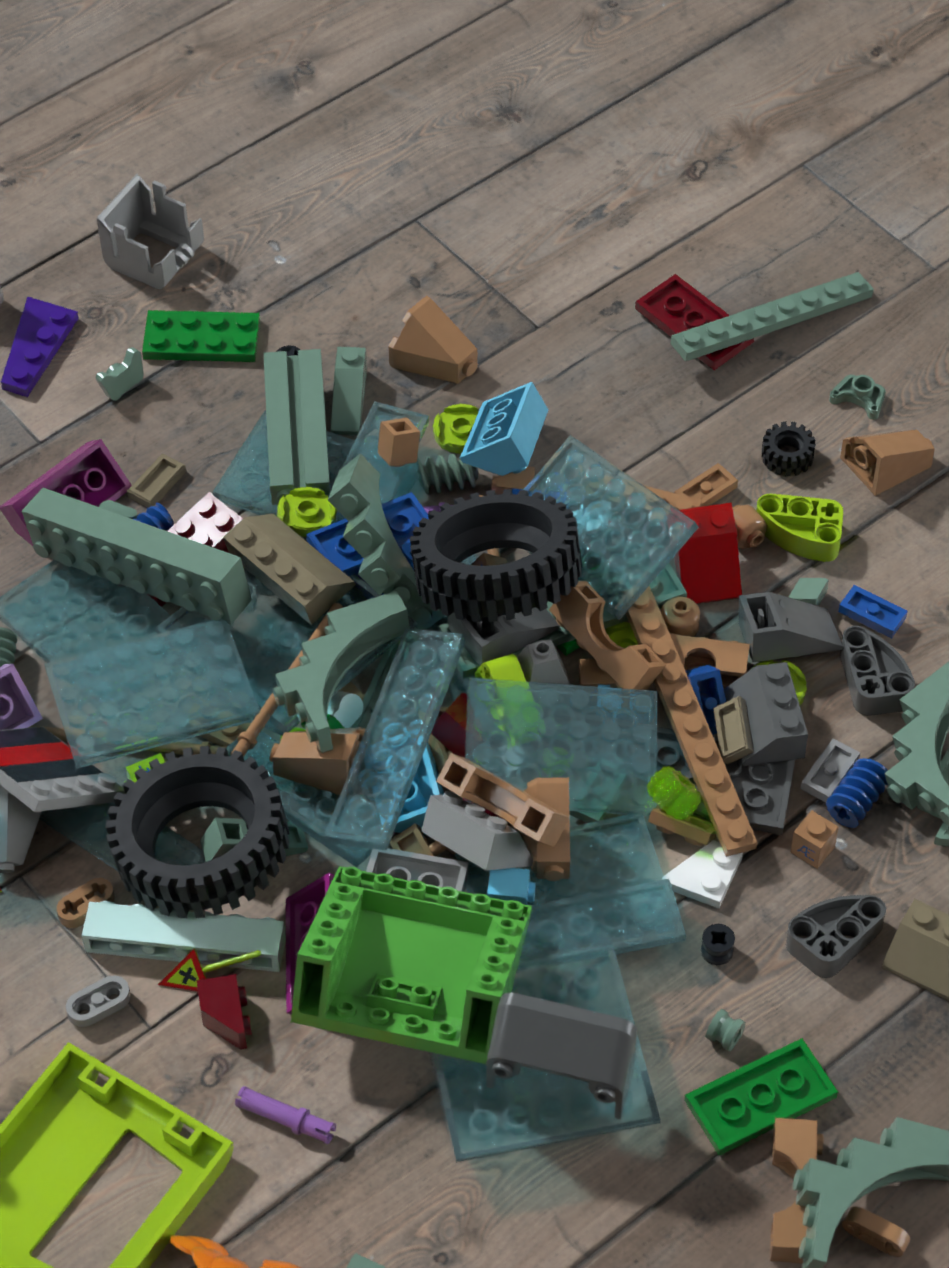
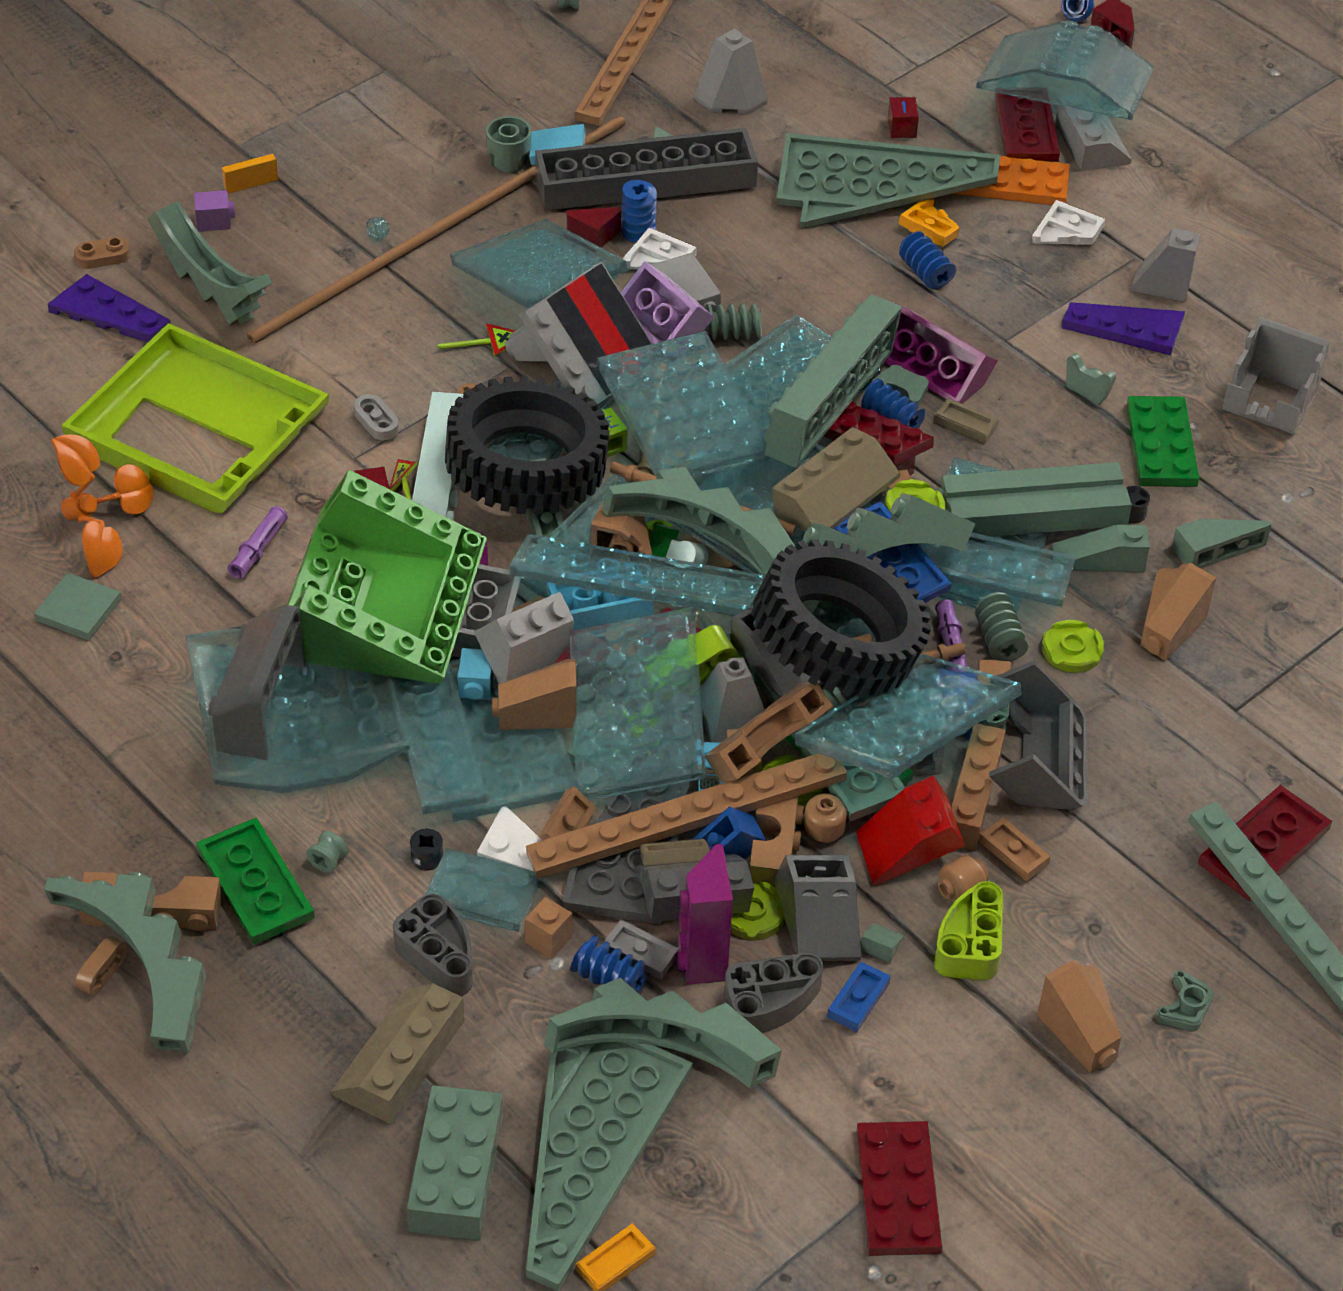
camera: 85 degrees right, 5 degrees down
(345, 315) = (1217, 540): none -> sand green slope
(398, 442) = (1005, 560): medium nougat brick -> none
(503, 799) = (570, 615): medium nougat arch -> none
(506, 431) = (1077, 670): medium azure slope -> none
(628, 452) = (1053, 743): none -> dark grey windscreen
(674, 793) = (586, 795): clear neon green gear -> none
(761, 900) = (485, 889): none -> clear light blue plate
(790, 436) = (1082, 940): black tyre -> none
(833, 689) = (705, 920): none -> magenta slope

